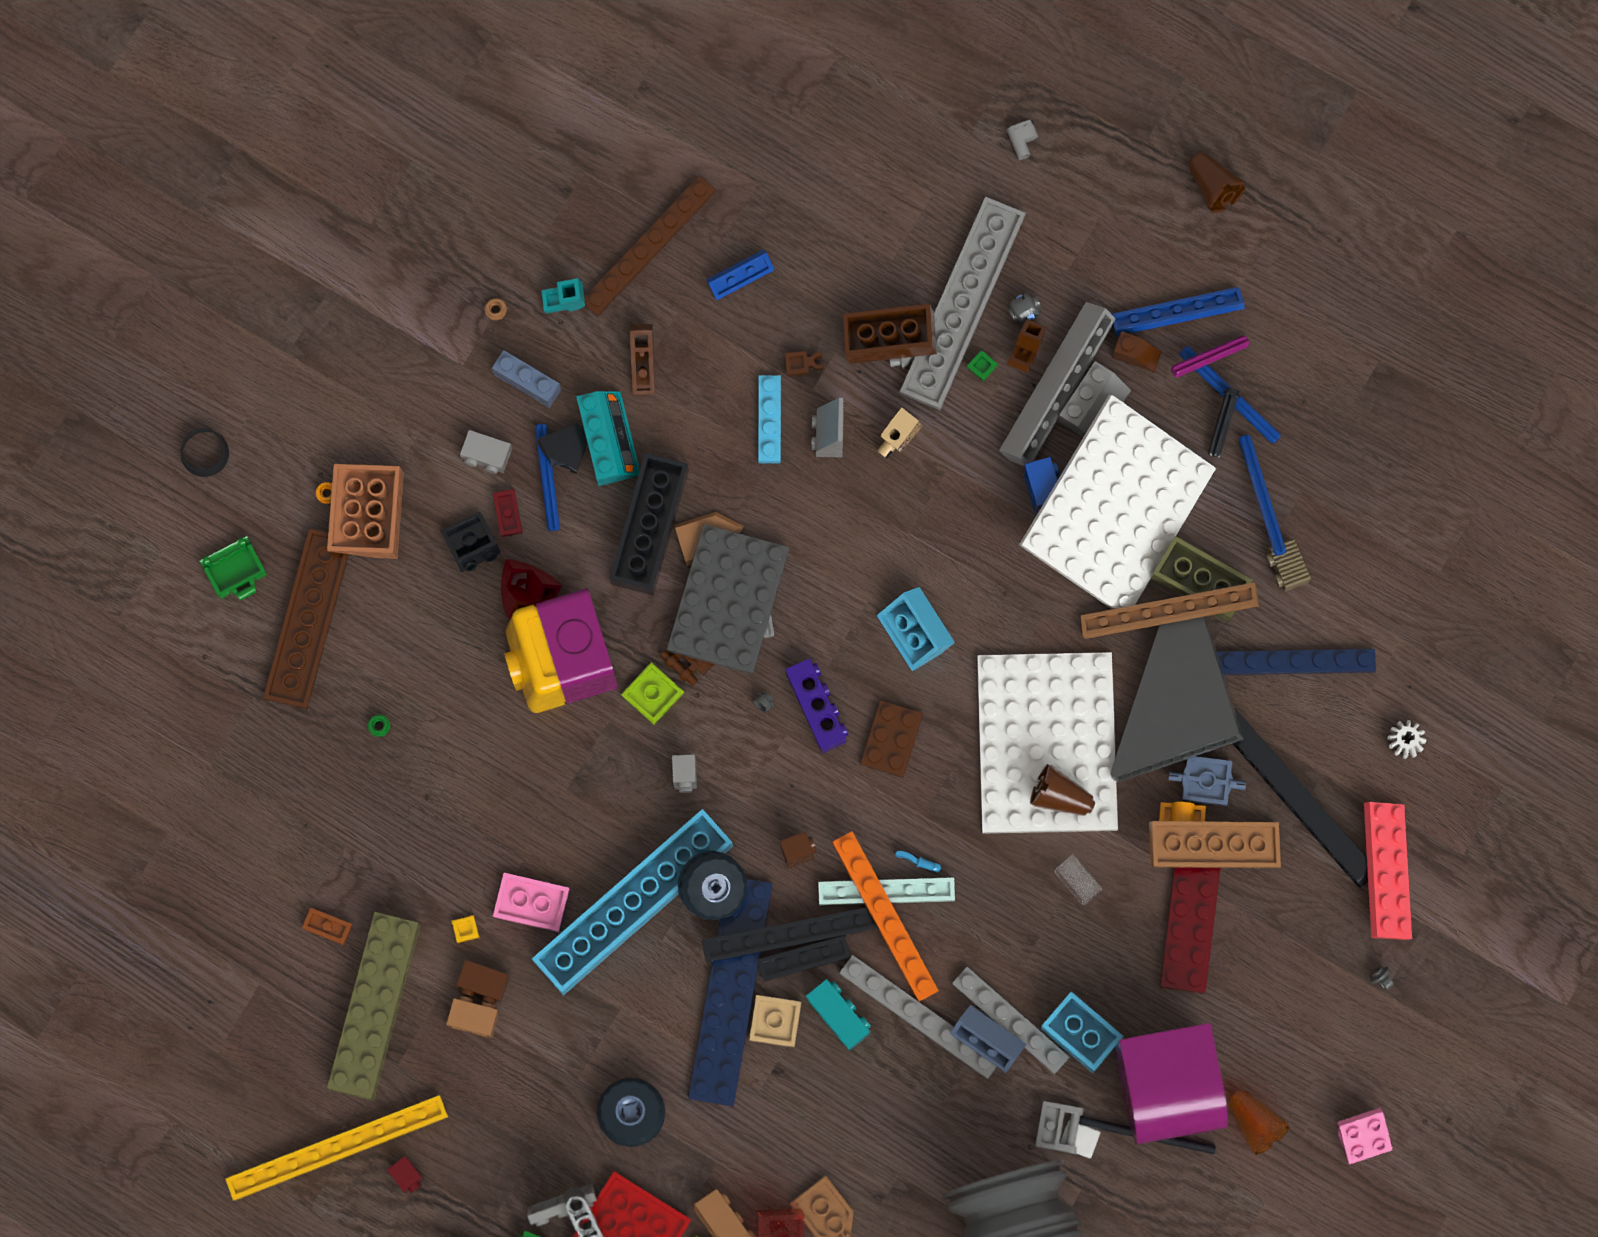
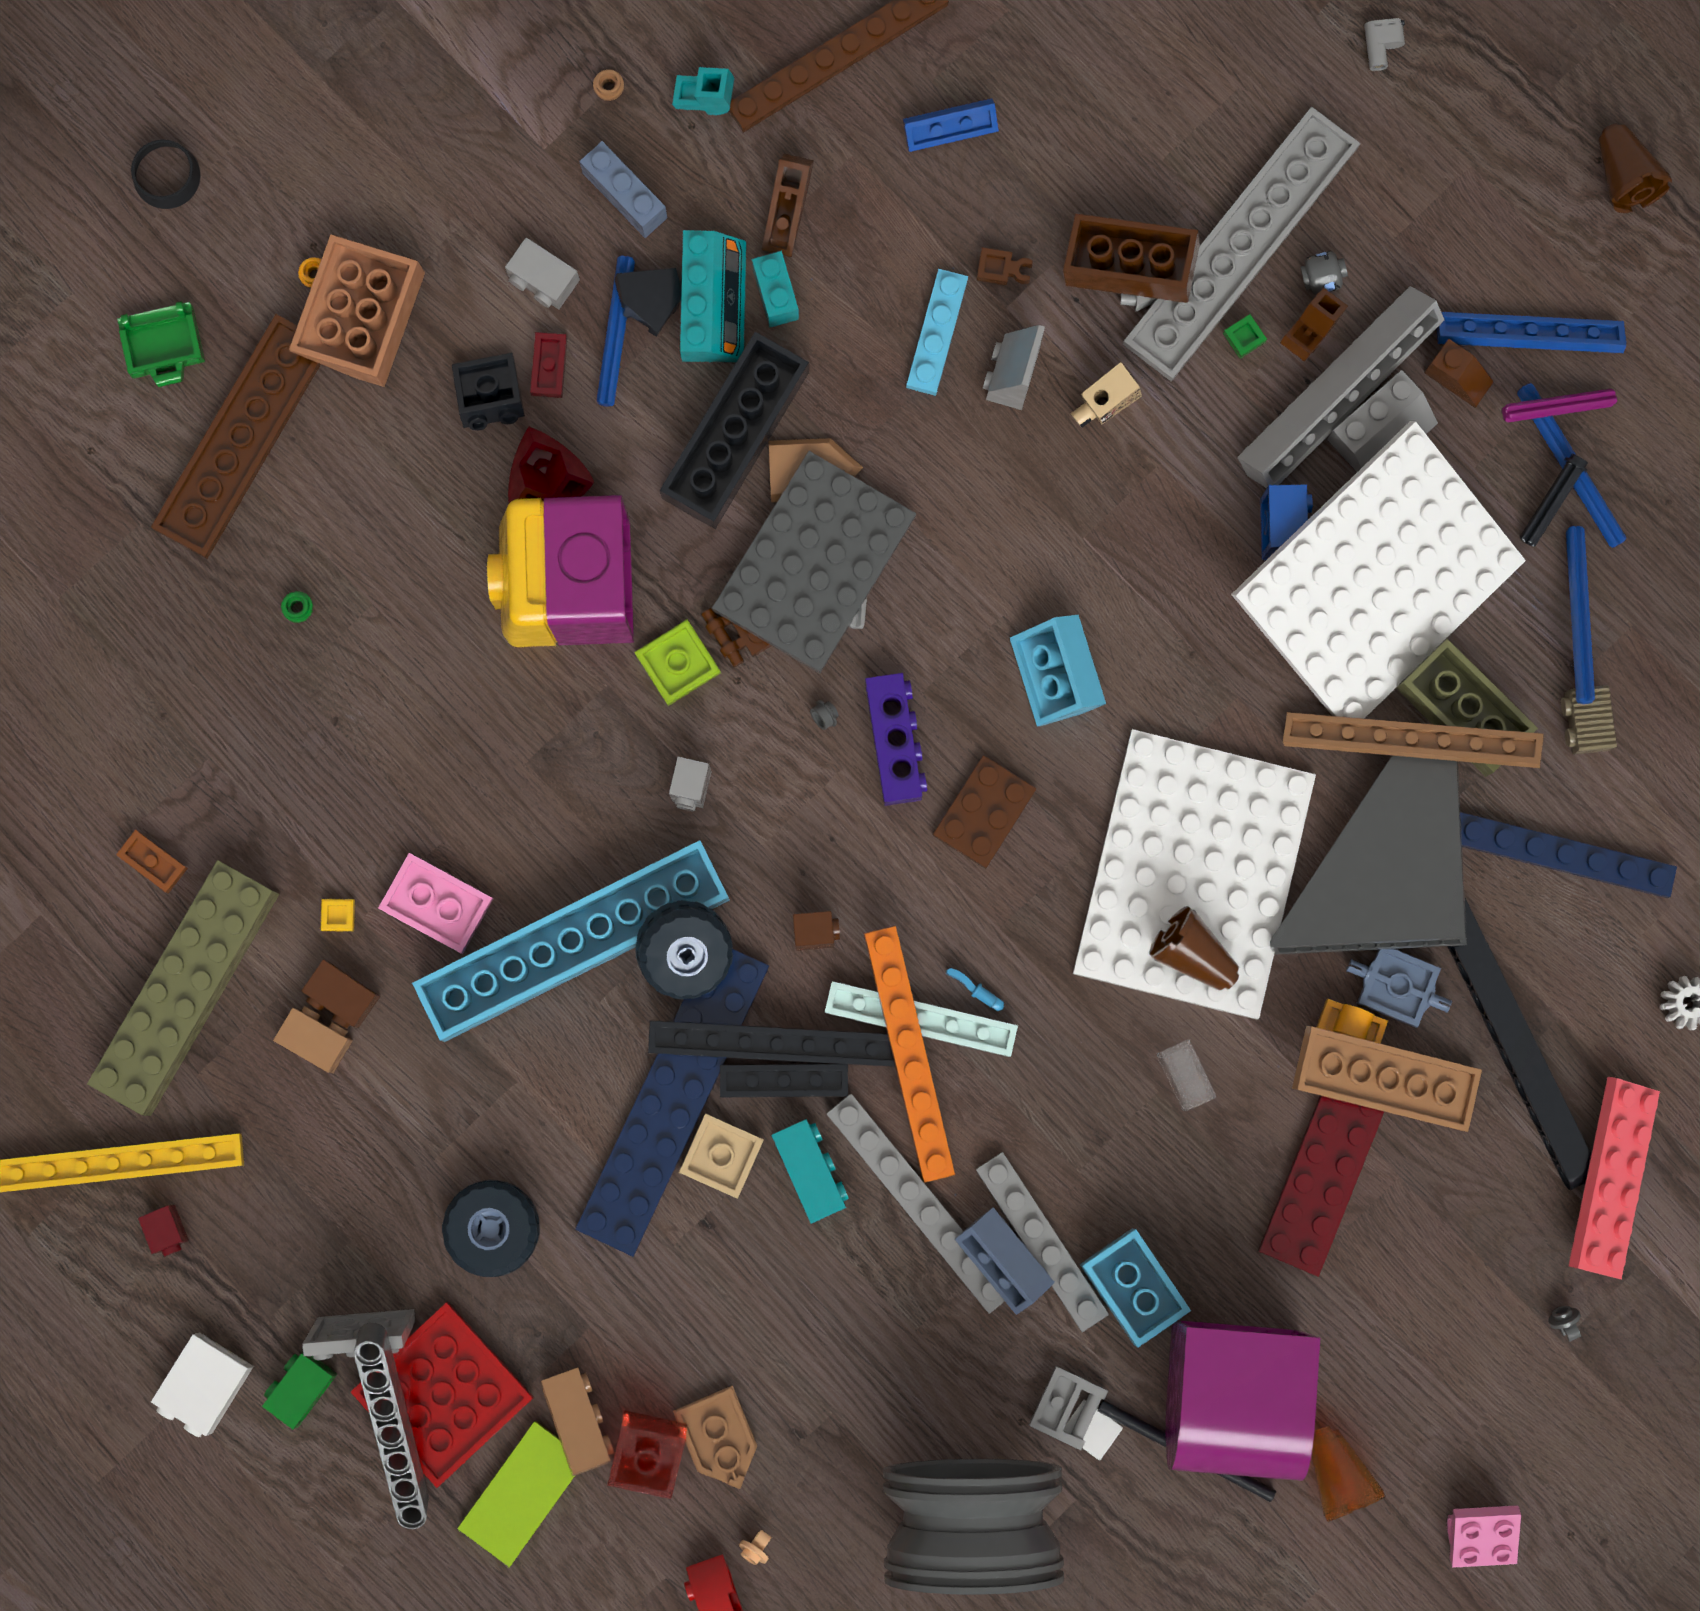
camera: 10 degrees right, 5 degrees up
(650, 419) = (775, 289): none -> teal brick

